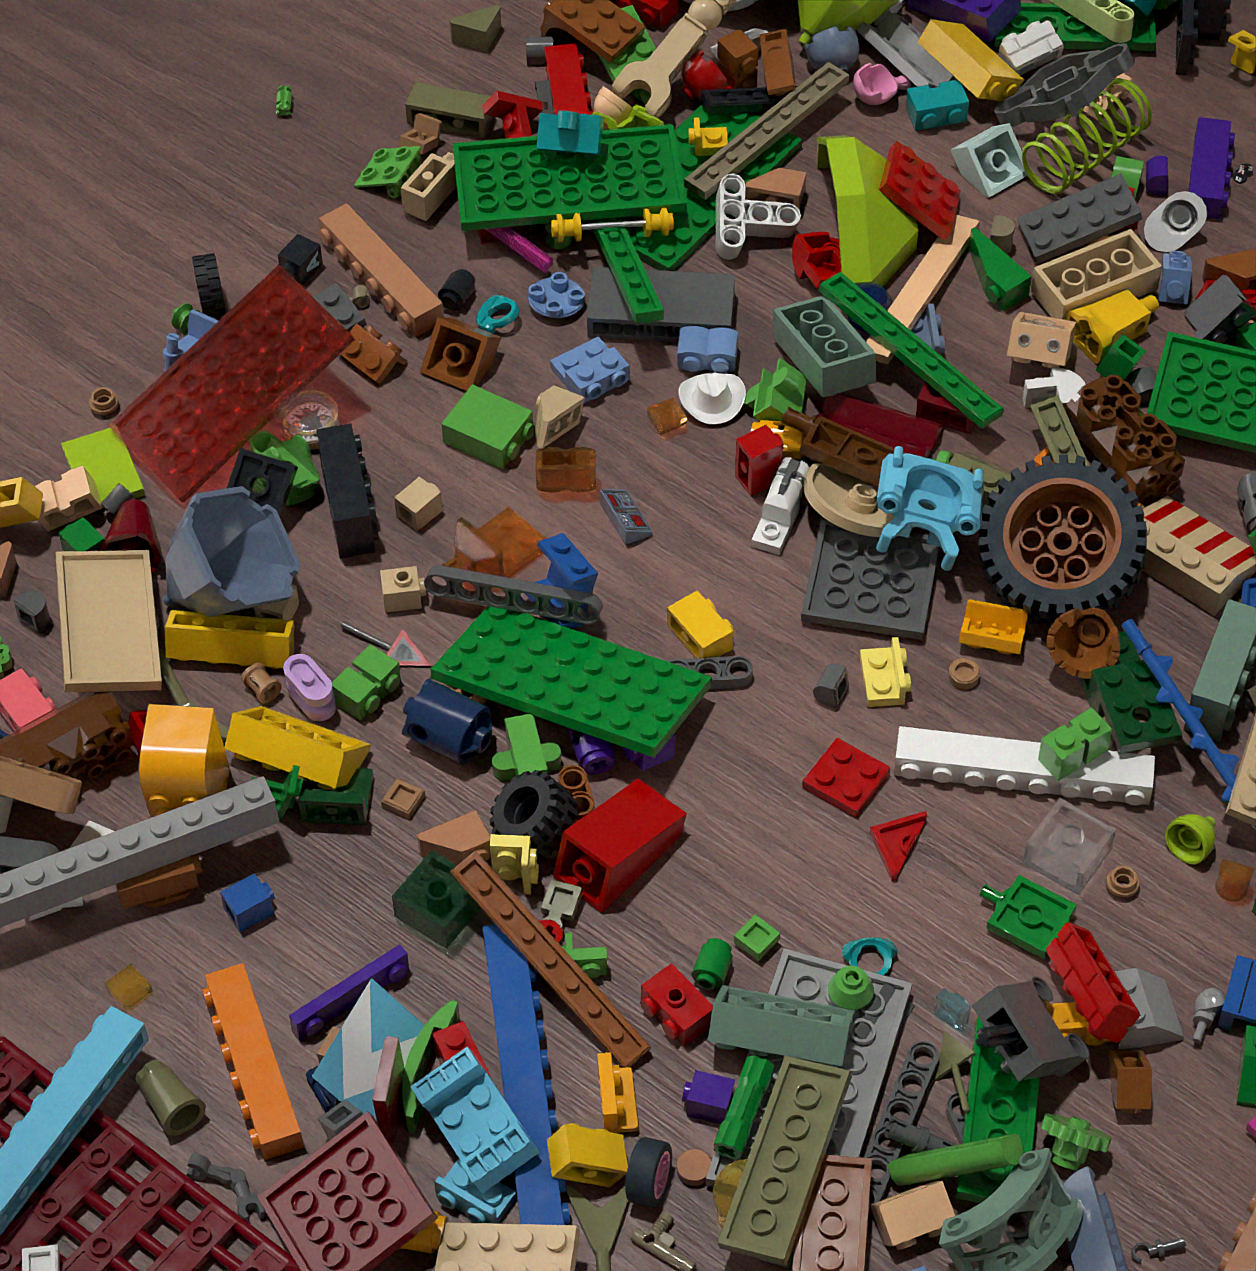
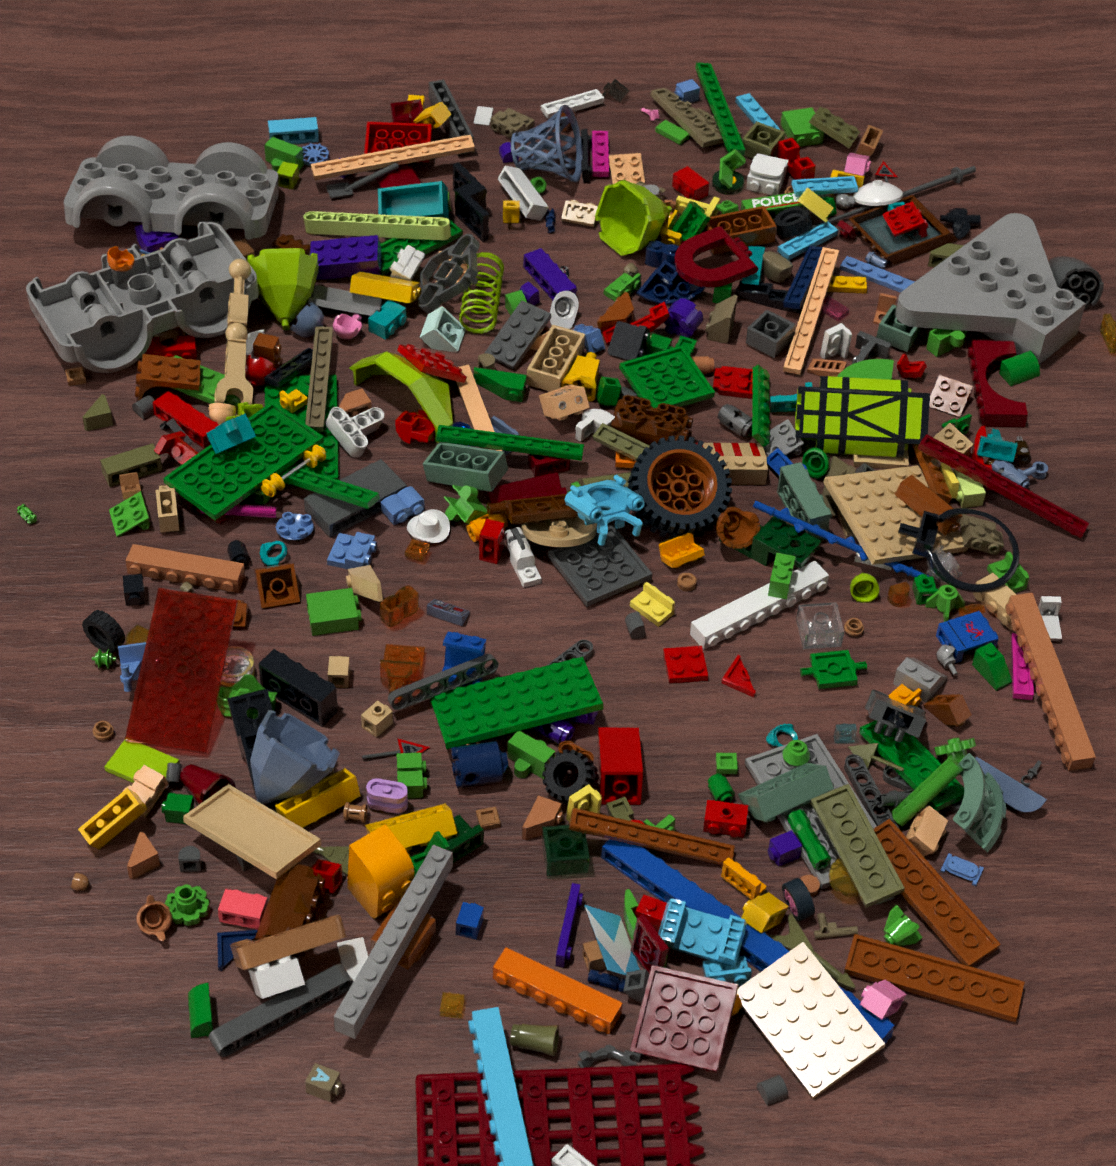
camera: 45 degrees left, 5 degrees down
(700, 626) = (545, 639): yellow brick -> none
(777, 62) = (291, 342): dark orange slope -> none
(1092, 983) = (898, 675): red brick -> none

